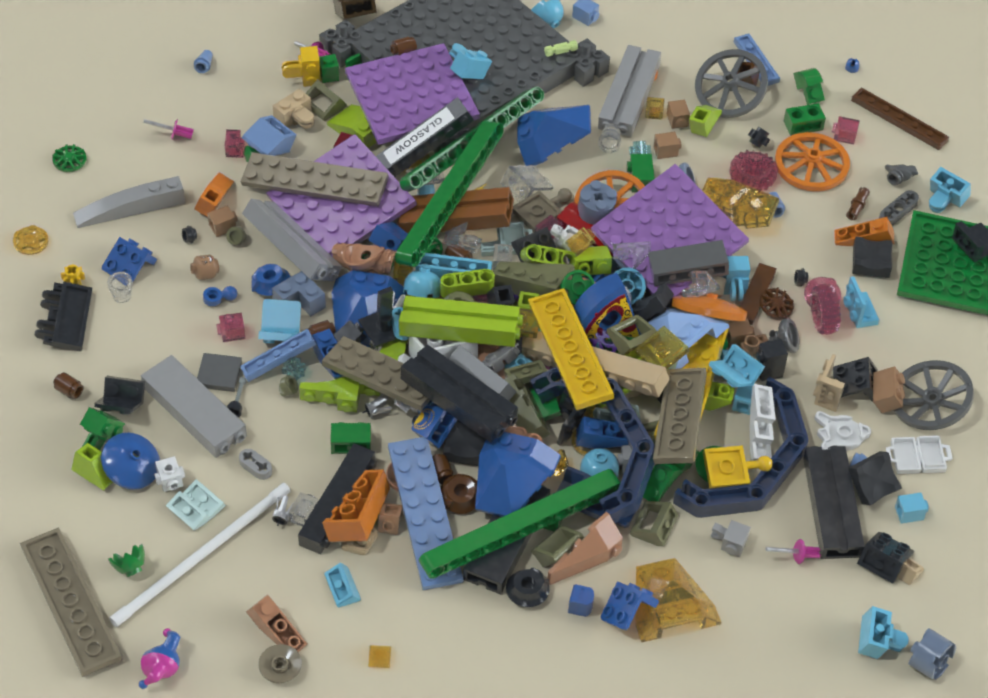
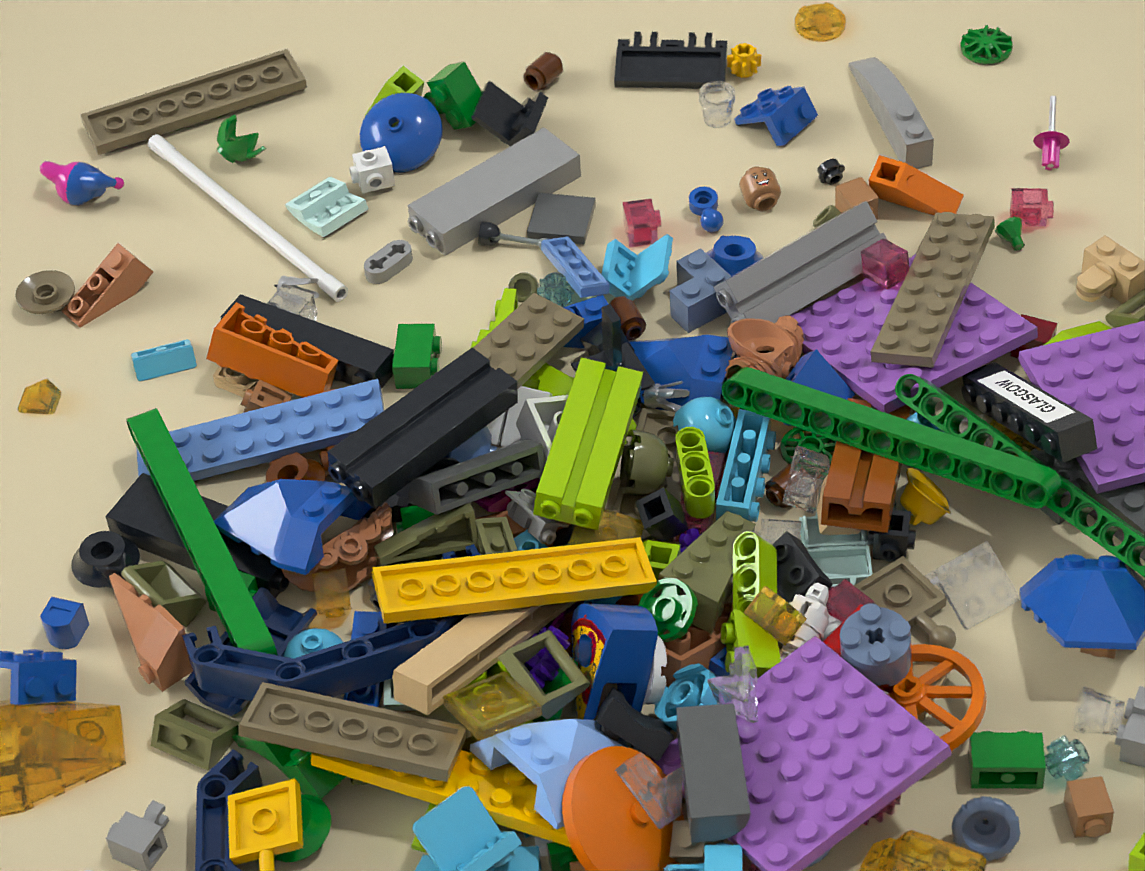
camera: 100 degrees right, 5 degrees down
(269, 136) = (1035, 239): medium blue slope -> none
(292, 200) = (885, 263): none -> clear pink brick

